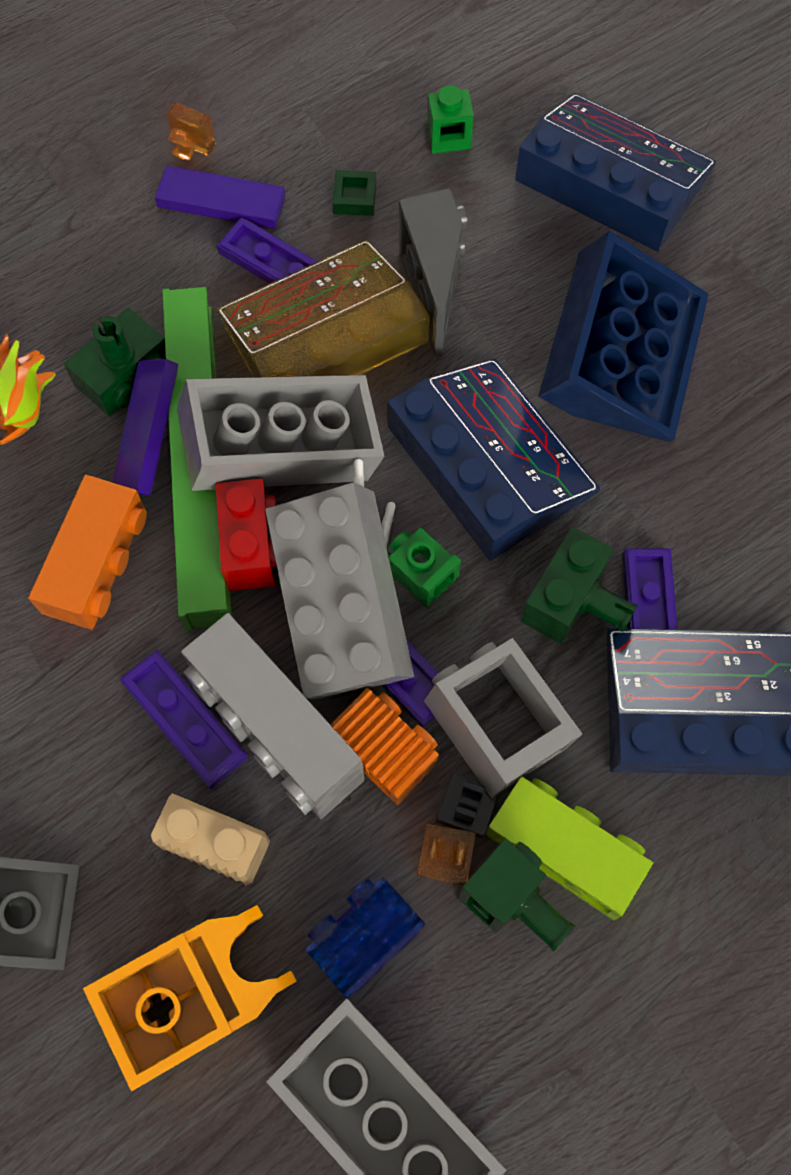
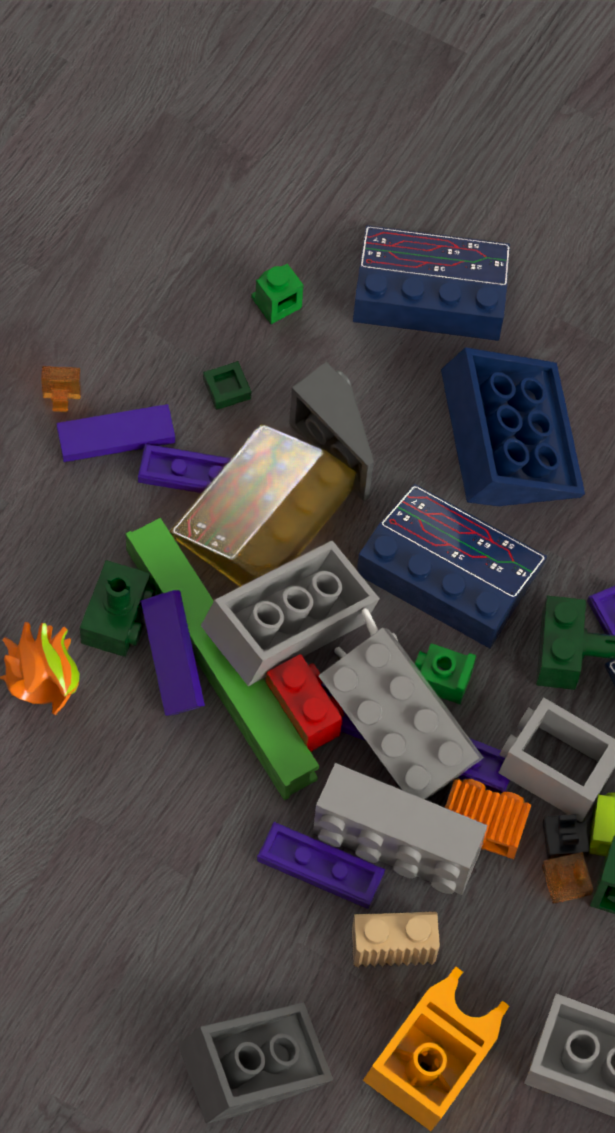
camera: 30 degrees left, 5 degrees down
(89, 552) = (182, 769): orange brick -> none
(364, 936) = (541, 956): clear blue brick -> none

